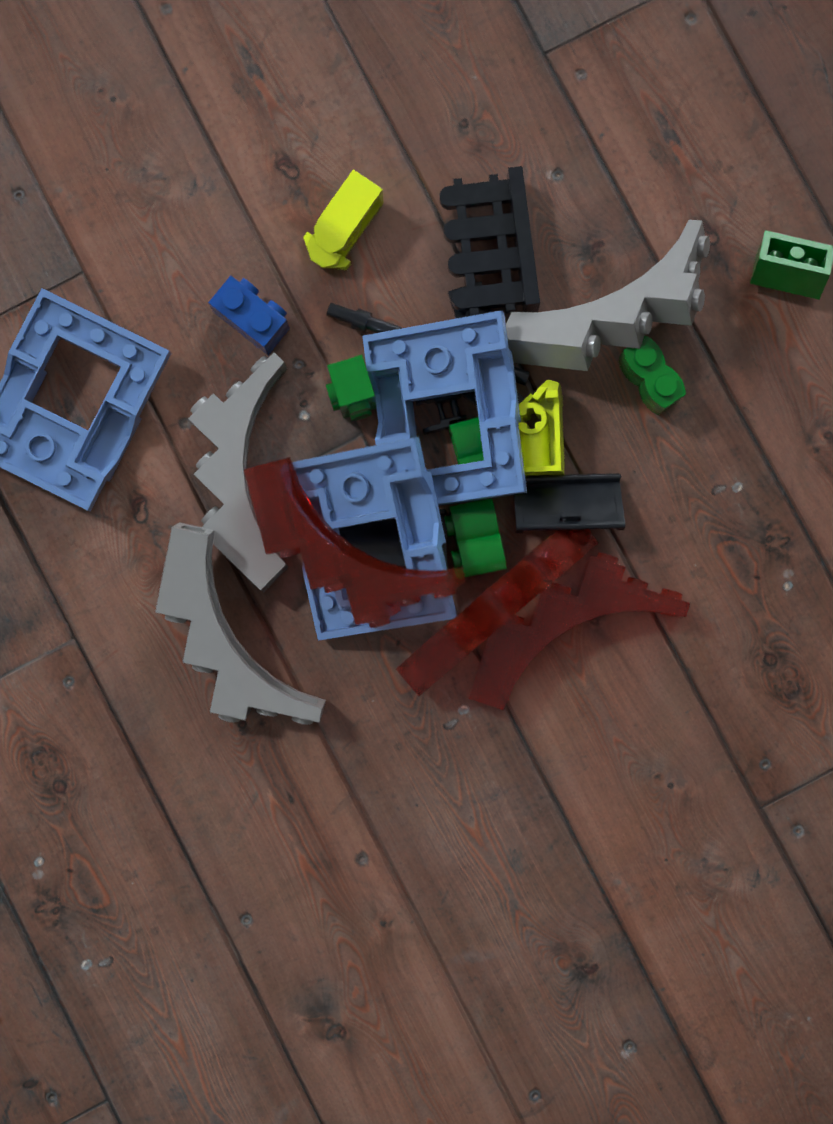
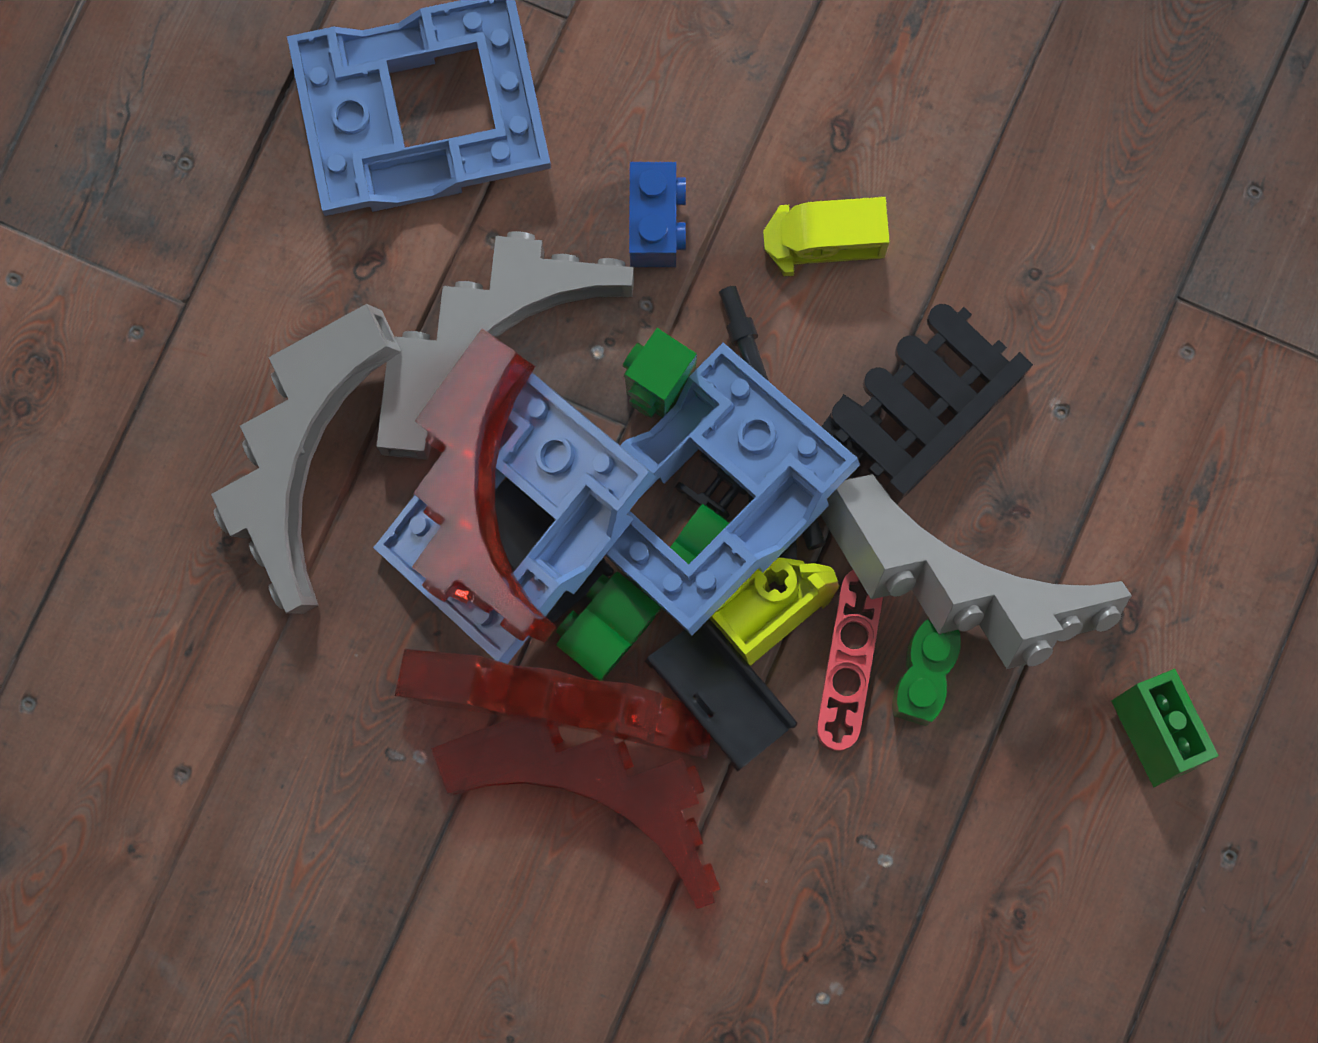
camera: 55 degrees right, 5 degrees down
(611, 409) = (856, 660): none -> coral beam

